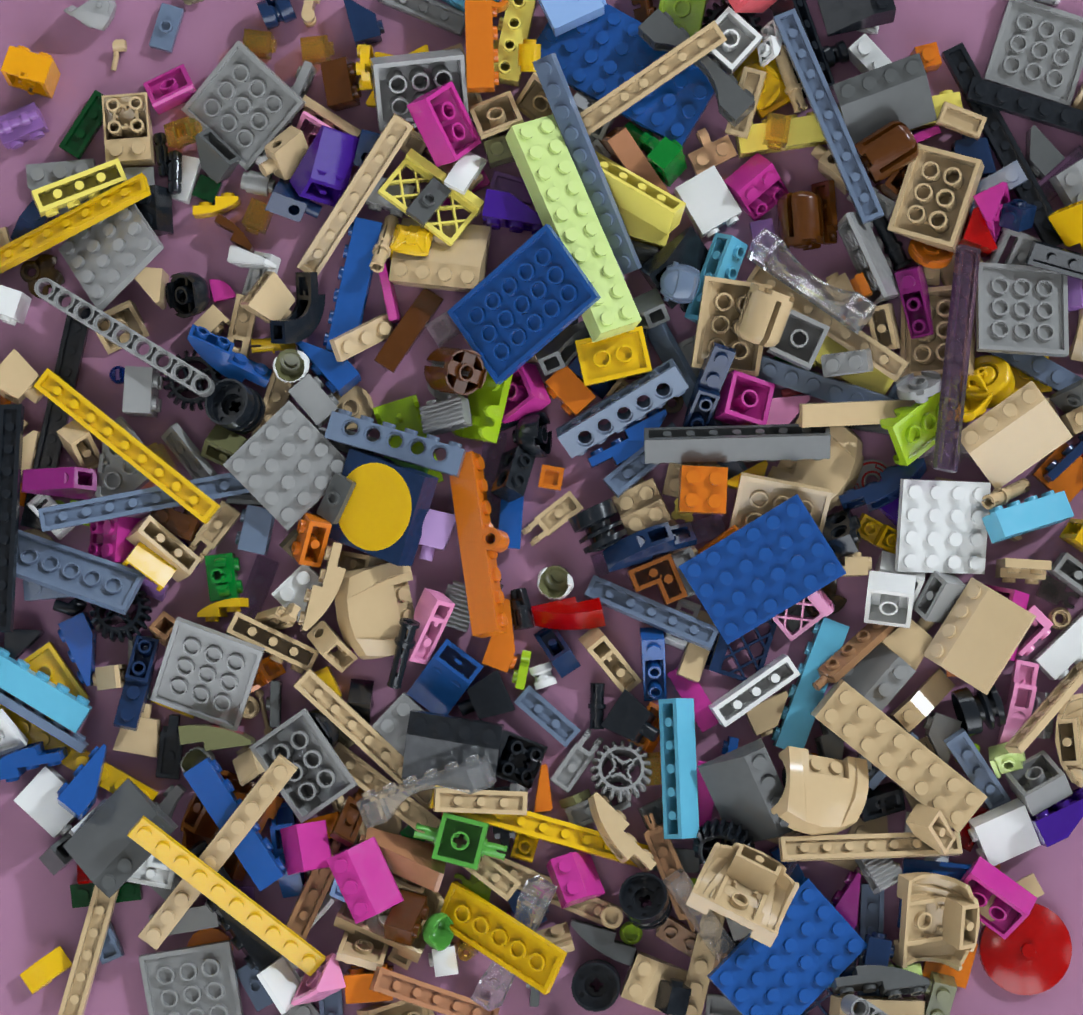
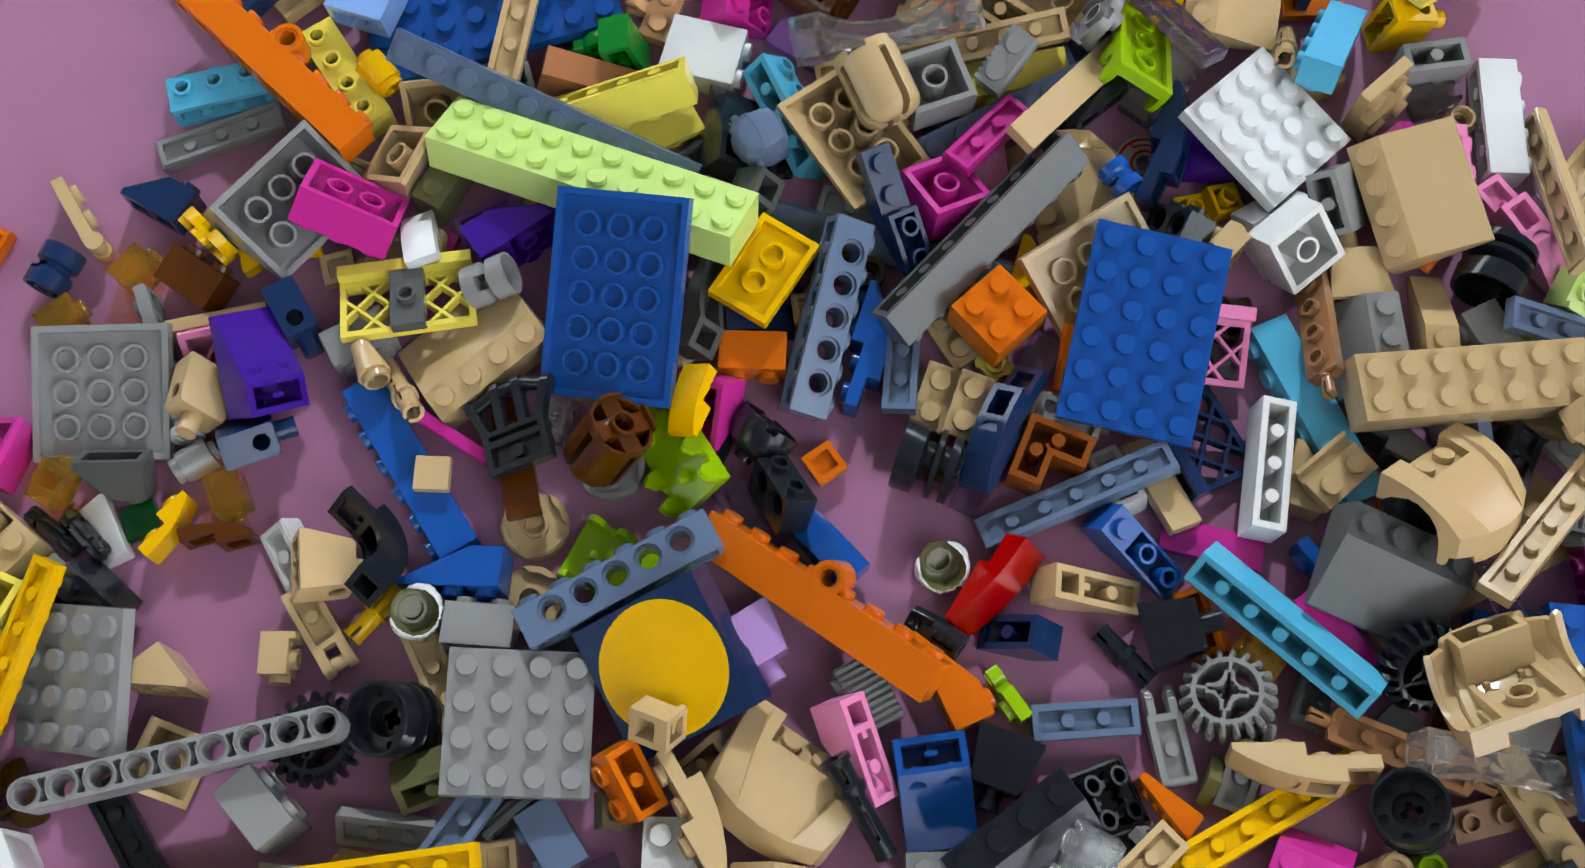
camera: 40 degrees left, 15 degrees down
(112, 374) = (212, 828): clear blue hinge -> none
(187, 294) = (219, 648): black cylinder -> none
(219, 355) = (318, 679): blue slope -> none
(221, 291) = (260, 612): dark pink tile -> none
(246, 259) = (260, 546): white slope -> none
(336, 498) = (608, 703): dark grey plate -> none
(346, 529) = (657, 724): none -> tan brick
(355, 195) = (318, 364): tan plate -> none
(359, 303) = (432, 474): none -> tan tile
(361, 337) = (468, 510): tan plate -> none
(380, 217) = (369, 365): none -> tan cone
(384, 381) = (538, 535): none -> tan tile
(411, 240) = (426, 358): yellow piece -> none
(417, 332) = (516, 444): none -> black plate
(445, 415) = (645, 498): light grey brick -> none
(476, 231) = (489, 281): none -> light grey wheel
(504, 393) = (687, 406): none -> yellow slope
(543, 675) = (1034, 680): white wheel -> none
(554, 516) = (869, 500): tan hinge -> none
(784, 723) = (1334, 471): none -> tan plate
(795, 392) = (983, 137): none -> dark pink tile
(838, 480) = (1119, 176): none -> blue wheel

